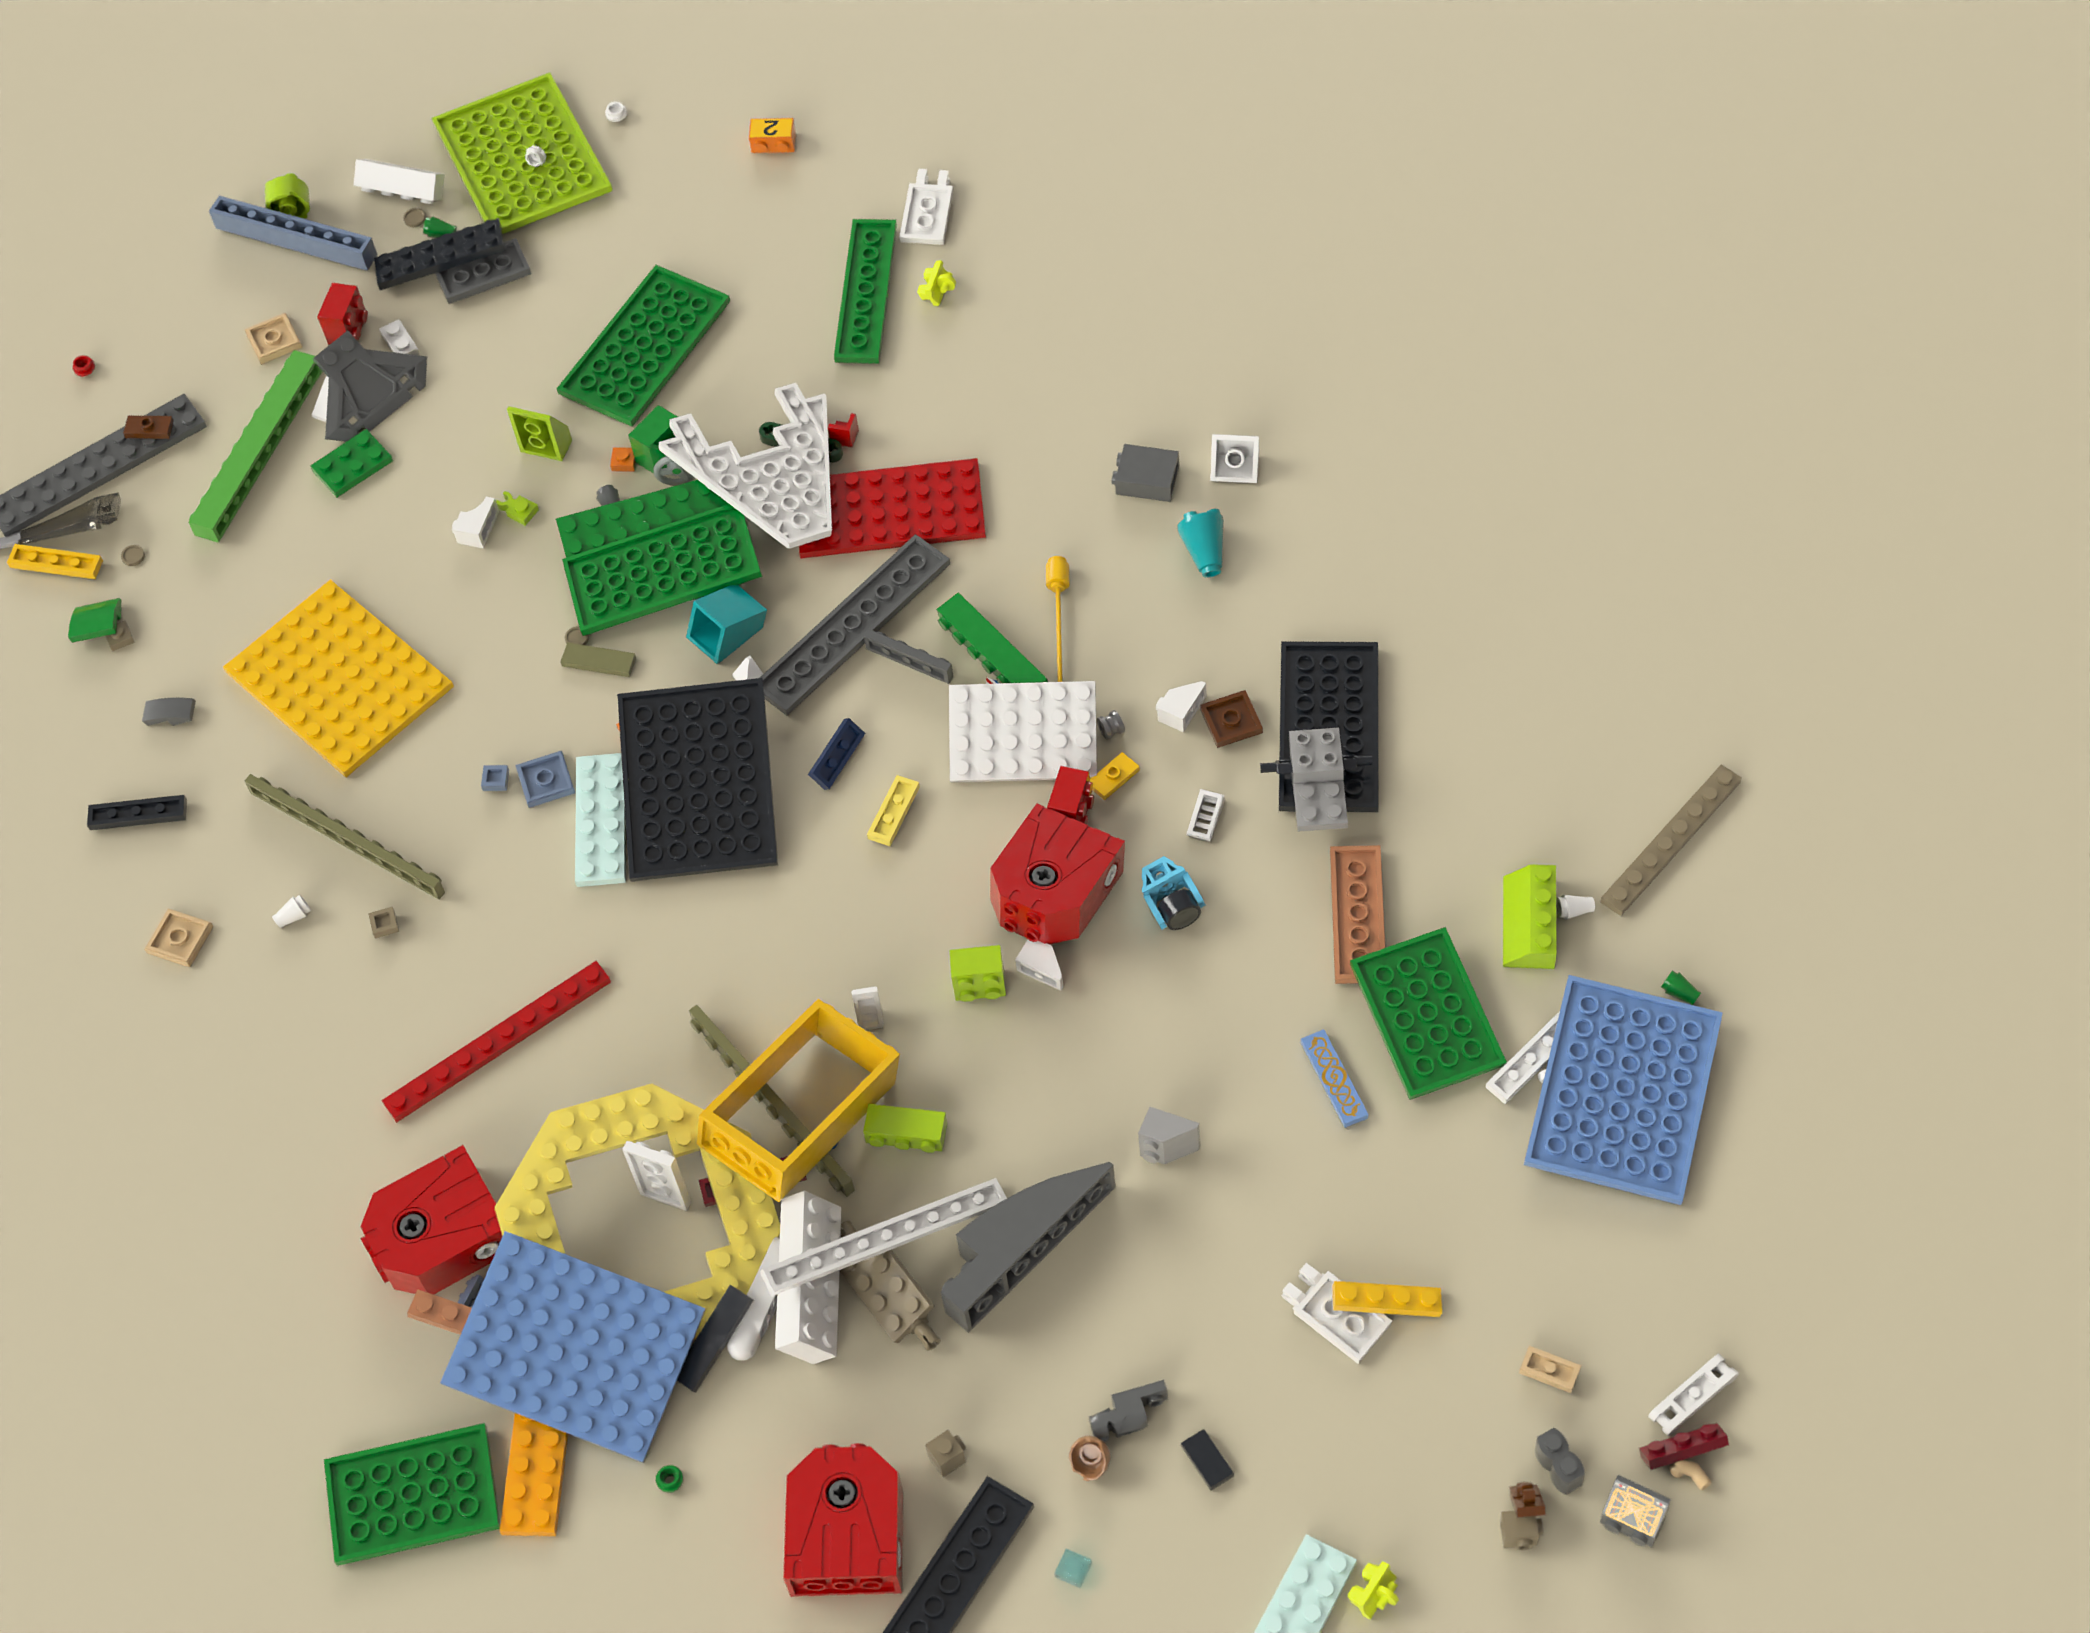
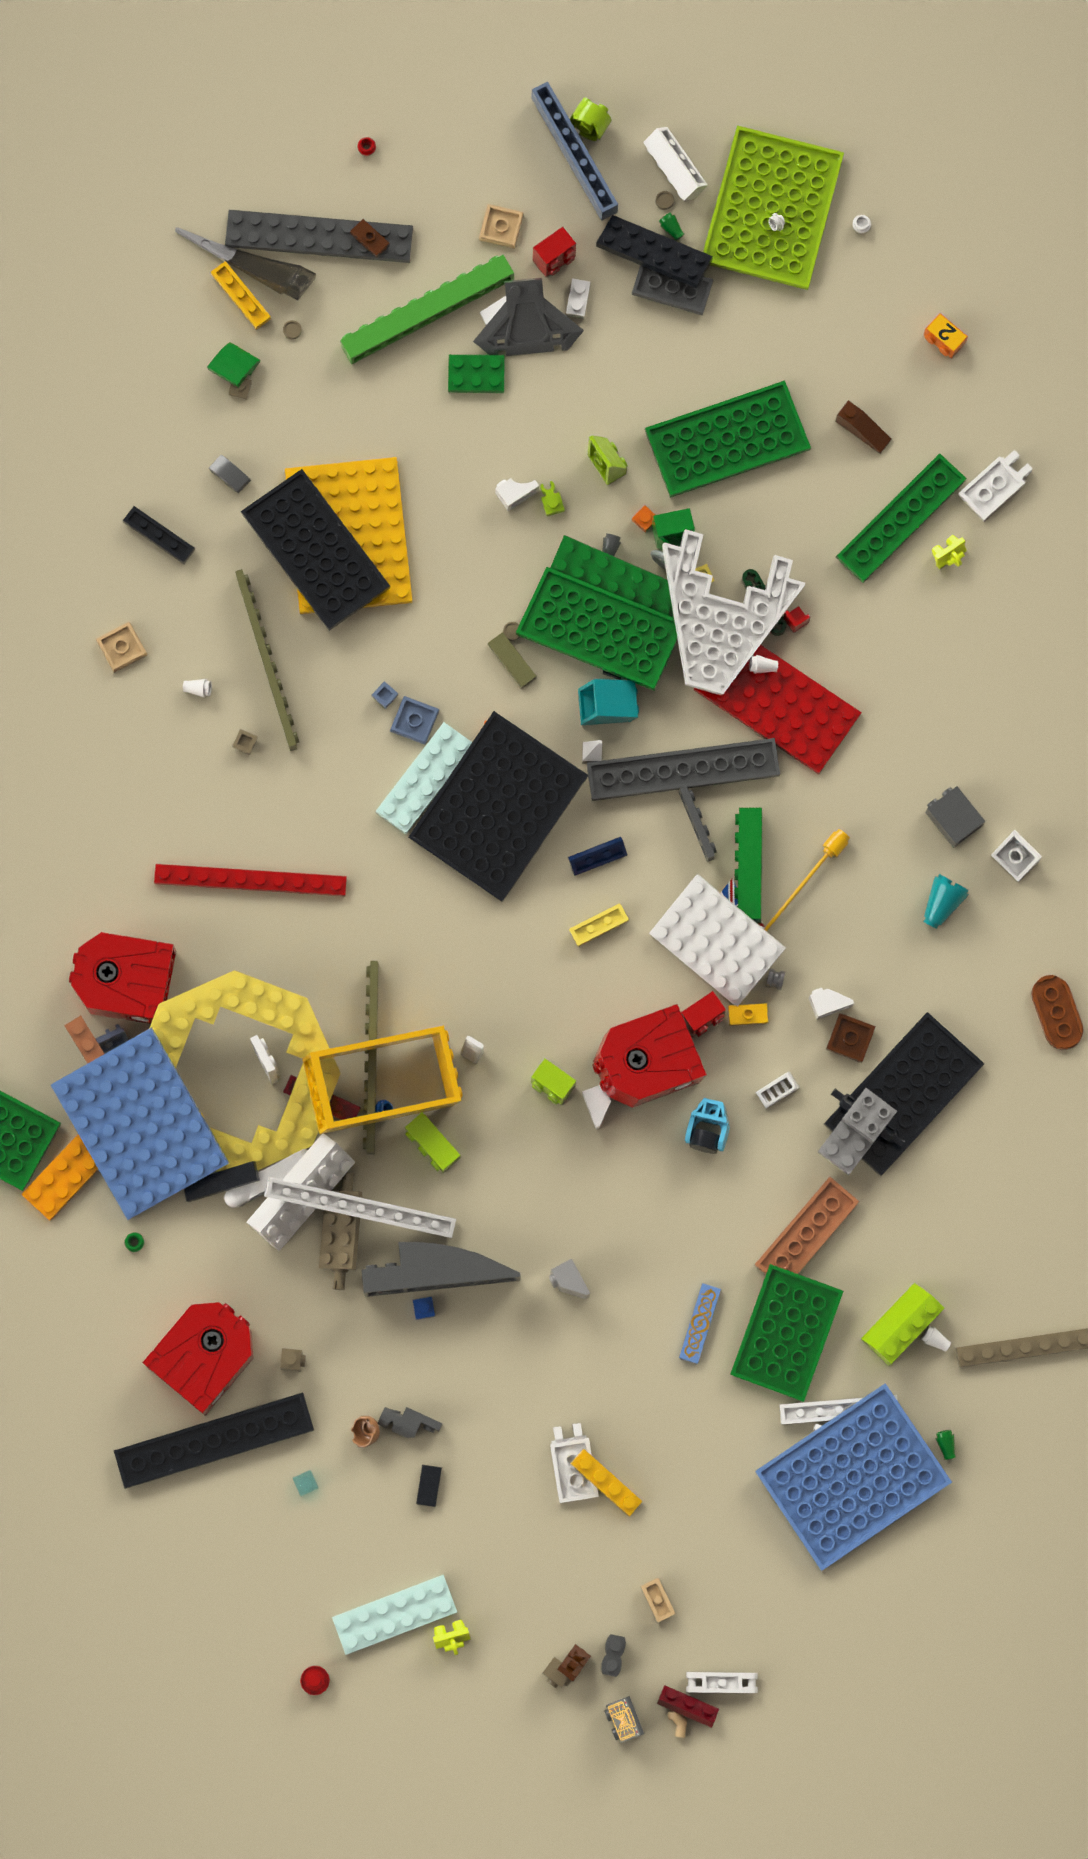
camera: 30 degrees right, 20 degrees up
(313, 704) = (315, 549): none -> black plate
(760, 249) = (862, 426): none -> reddish brown slope
(845, 483) = (761, 664): none -> white cone
(1040, 1291) = (423, 1308): none -> blue plate
(1400, 555) = (1057, 1012): none -> dark orange tile

